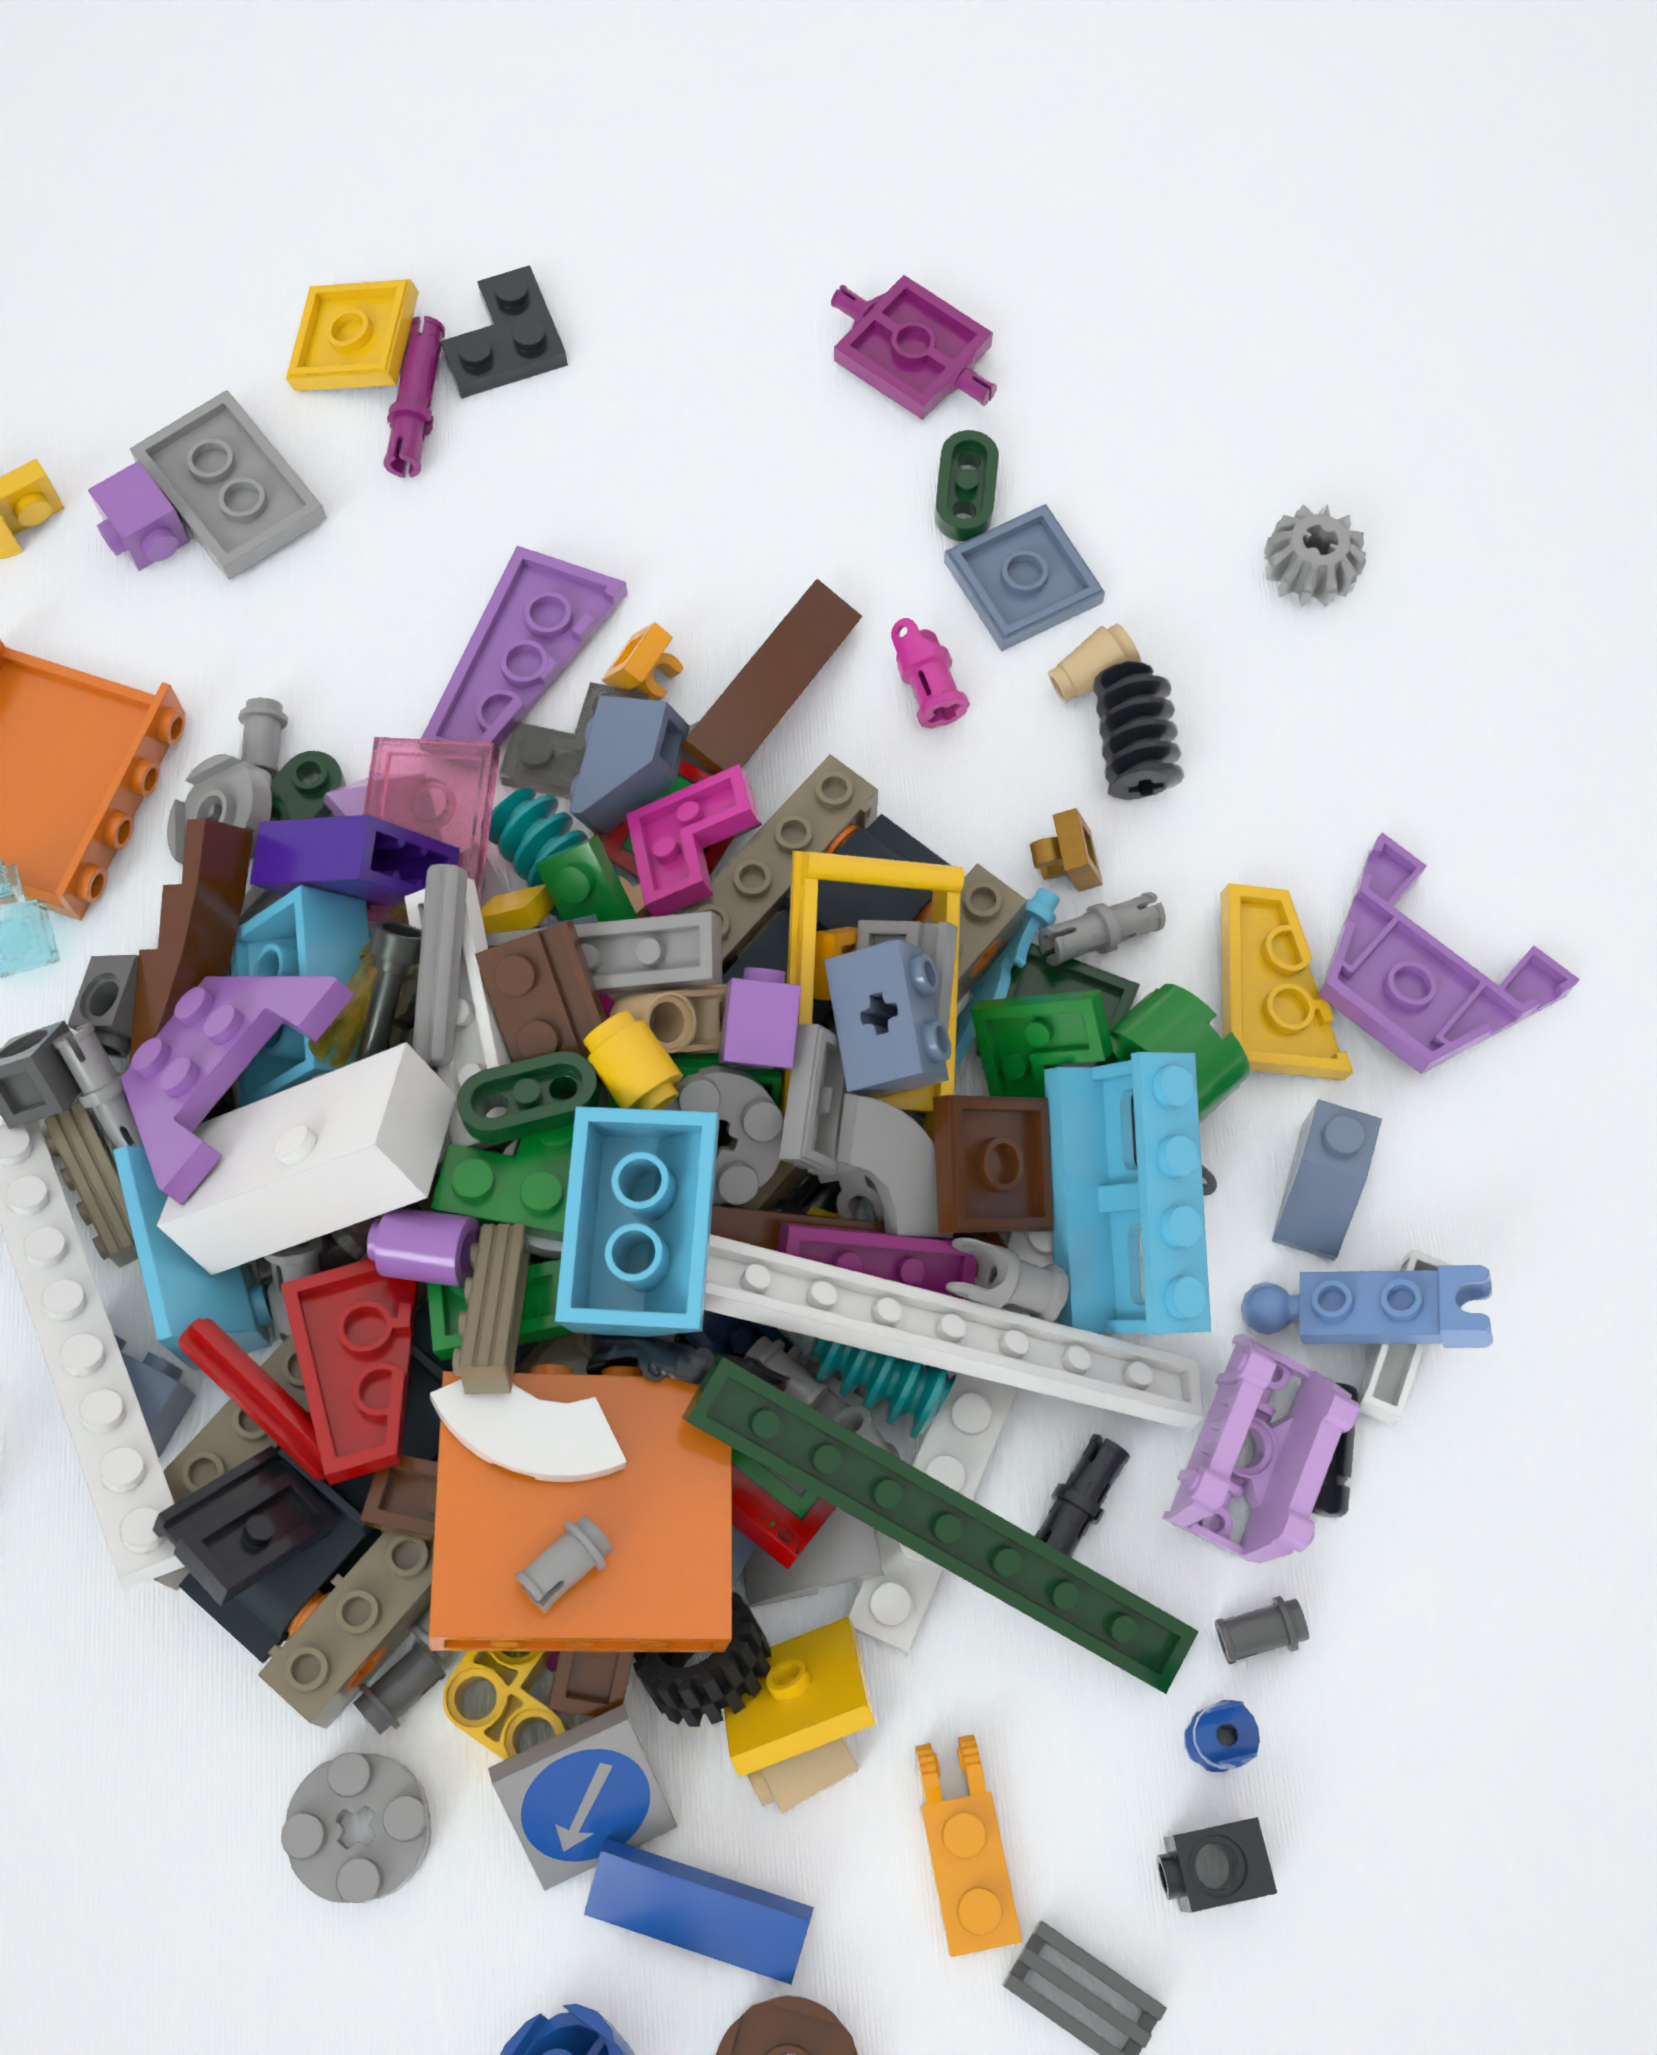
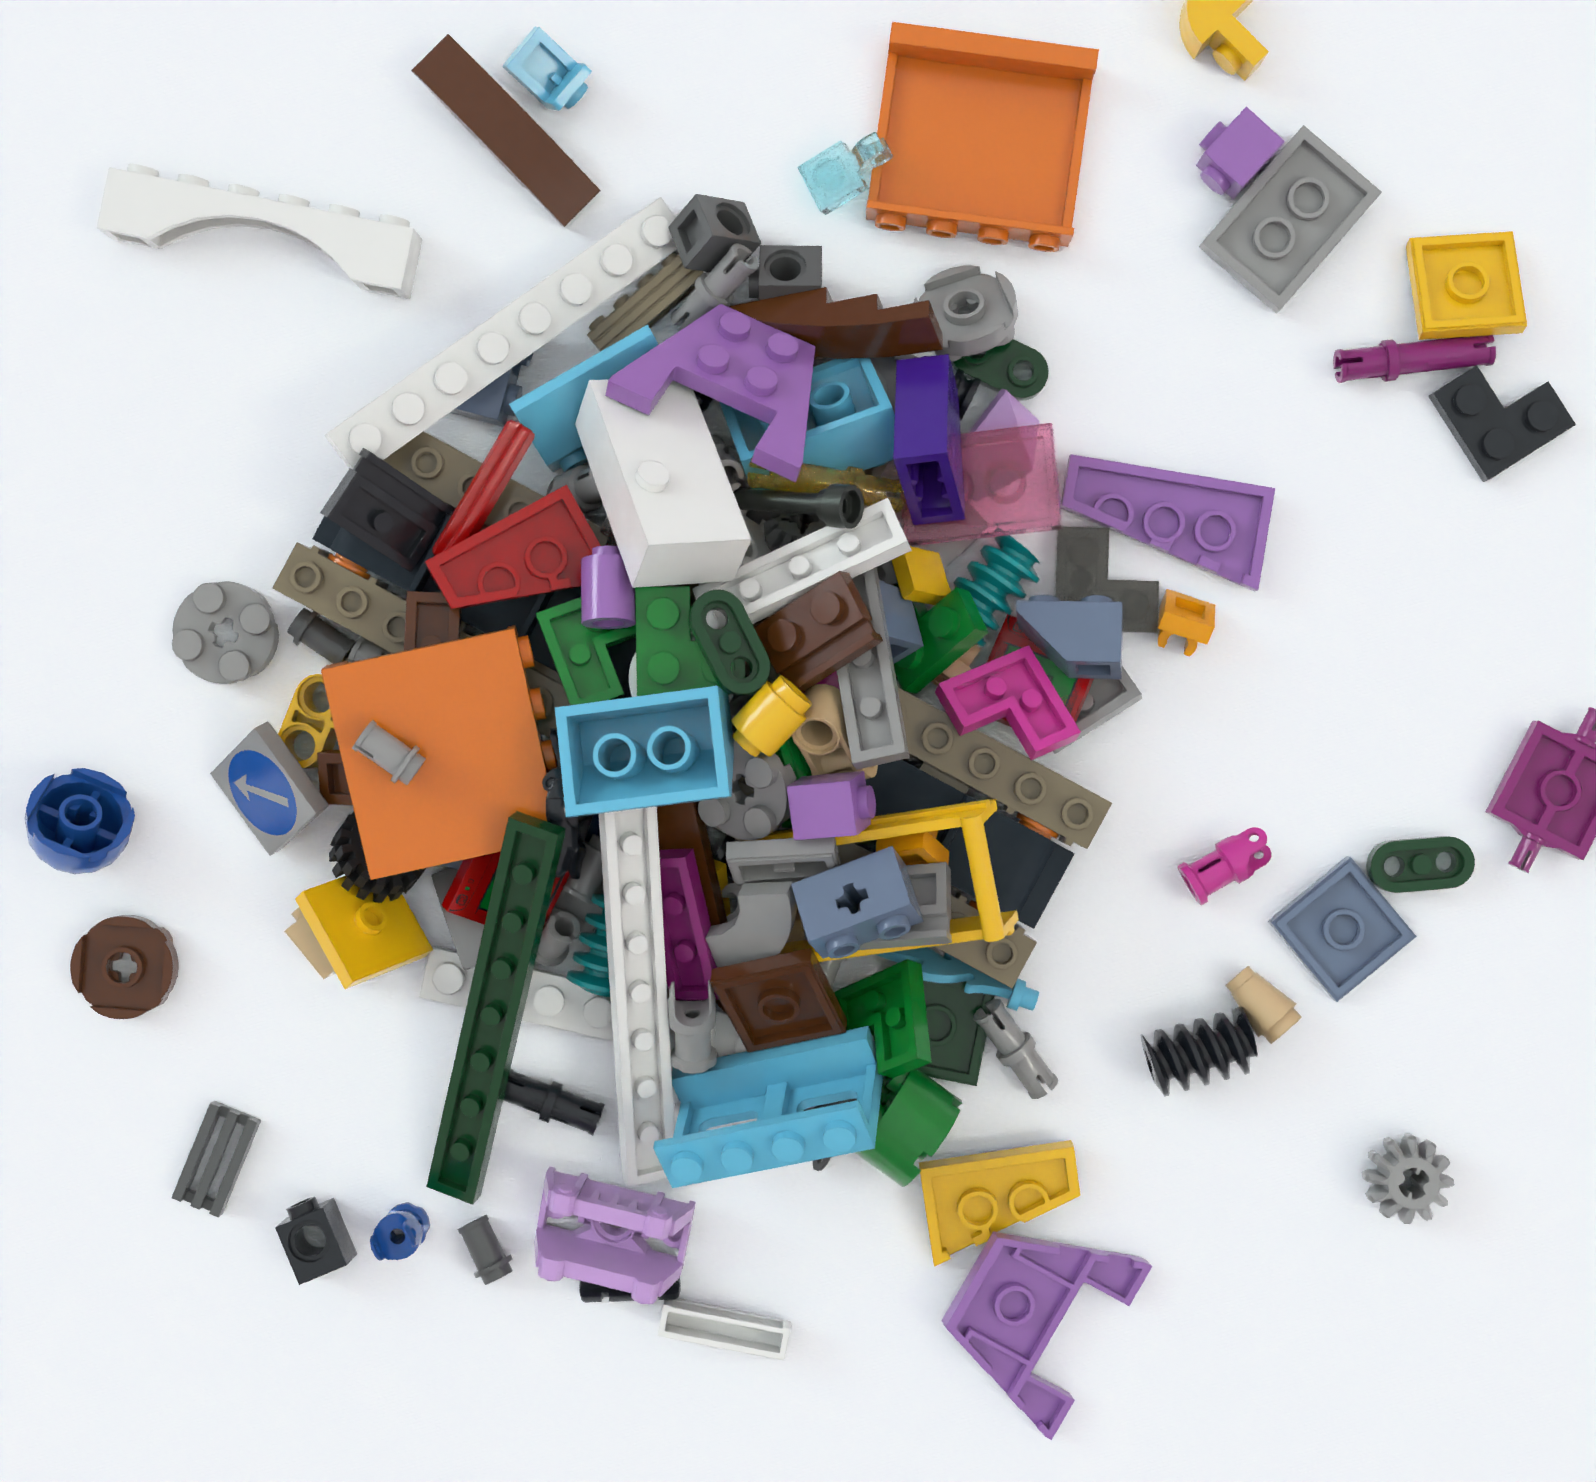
camera: 75 degrees right, 20 degrees up
(261, 733) = (1051, 319): light grey pin -> none
(440, 964) = (829, 544): light grey axle -> none
(494, 1309) = (565, 656): dark tan piece -> none
(532, 1434) = (478, 702): white tile -> none
(698, 1911) = (216, 884): blue tile -> none
(772, 680) = (1183, 737): reddish brown slope -> none
(967, 1856) = (290, 1063): light orange hinge -> none
(1069, 852) = (1080, 1014): pearl gold tile -> none
(1326, 1179) = (837, 1255): sand blue slope -> none
(1377, 1307) = (735, 1302): medium blue plate -> none

